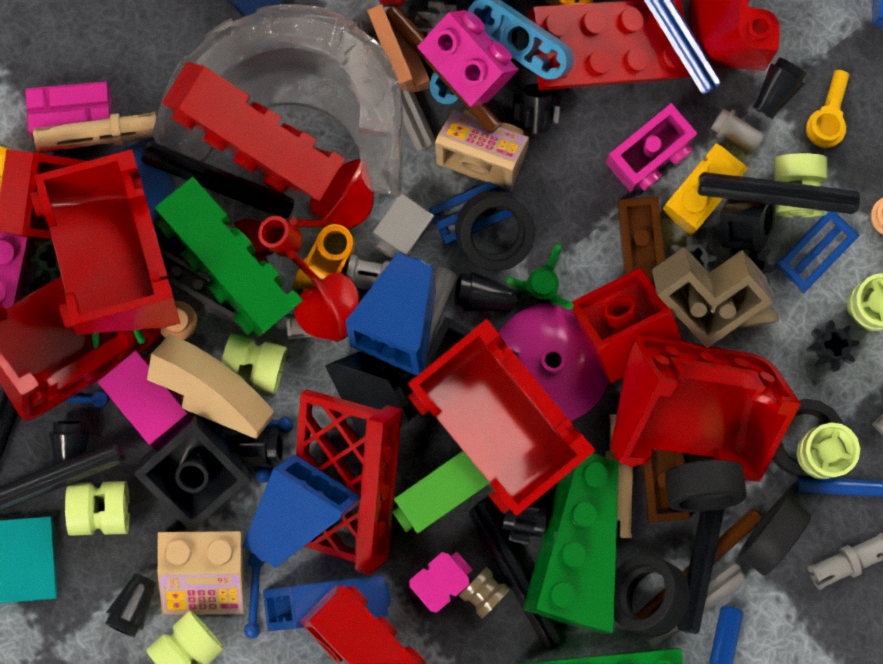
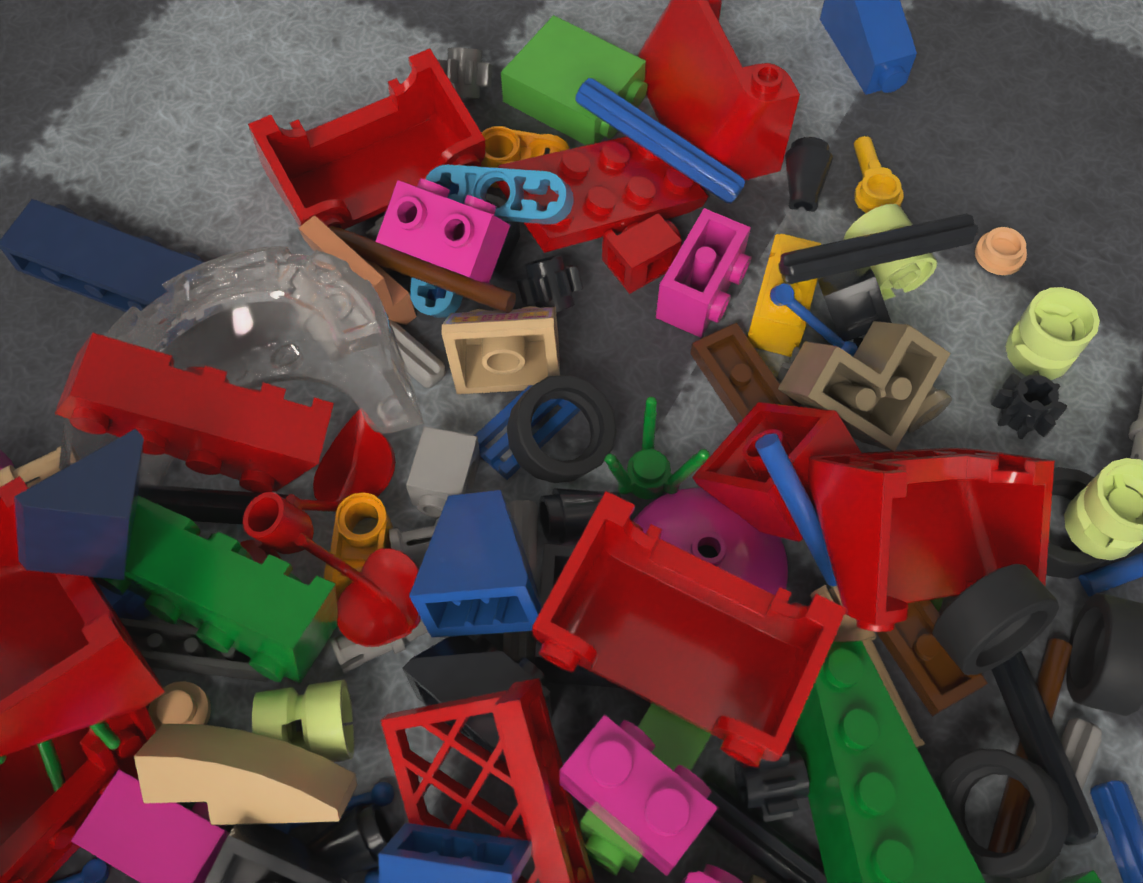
camera: 20 degrees left, 20 degrees down
(175, 207) = (83, 514): none -> dark blue slope
(428, 499) = (637, 793): none -> dark pink brick
(613, 352) = (796, 500): none -> blue bar
(619, 106) = (641, 251): none -> red brick
(689, 204) = (784, 295): none -> blue hinge
(737, 130) = (770, 224): light grey pin -> none
(793, 274) = (953, 282): blue tile -> none

